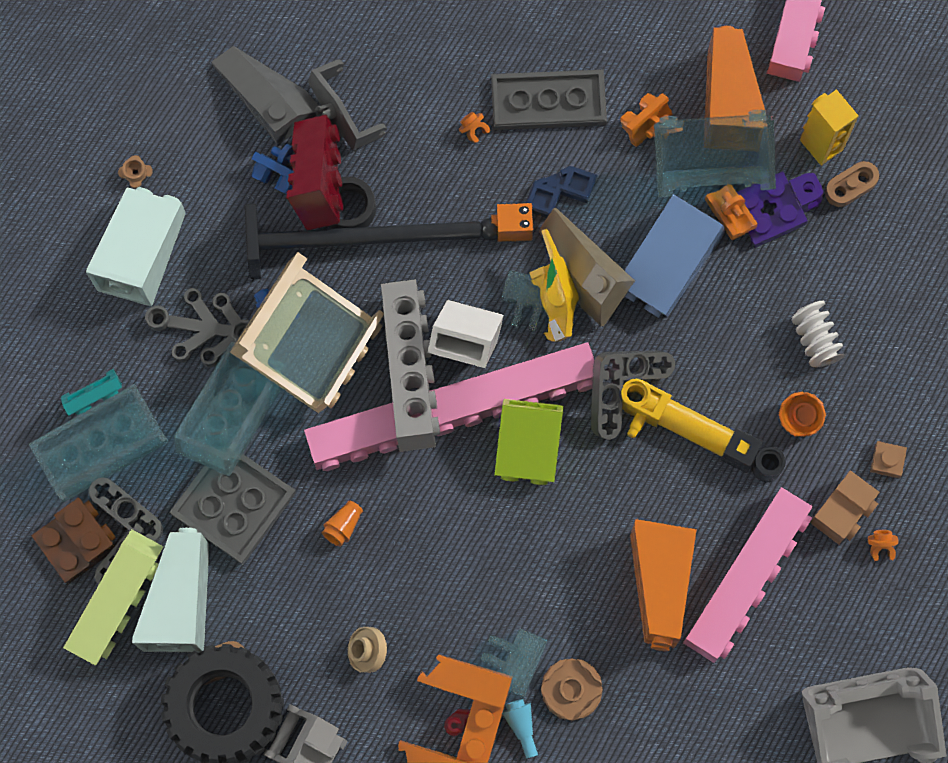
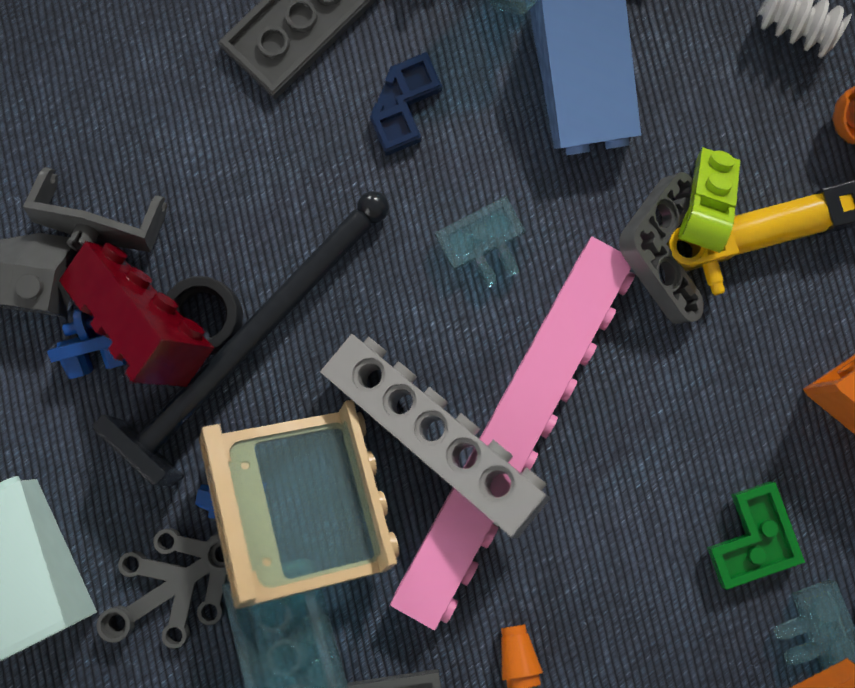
camera: 40 degrees left, 10 degrees up
(465, 333) = (463, 345): white brick -> none
(470, 123) = (246, 113): orange plate -> none
(514, 222) = (391, 176): orange brick -> none
(528, 441) = (631, 395): lime brick -> none
(528, 587) = (767, 542): none -> green plate
(556, 292) = (511, 214): yellow animal -> none
(595, 275) = (520, 161): dark tan wedge -> none
(670, 379) = (711, 200): none -> lime plate

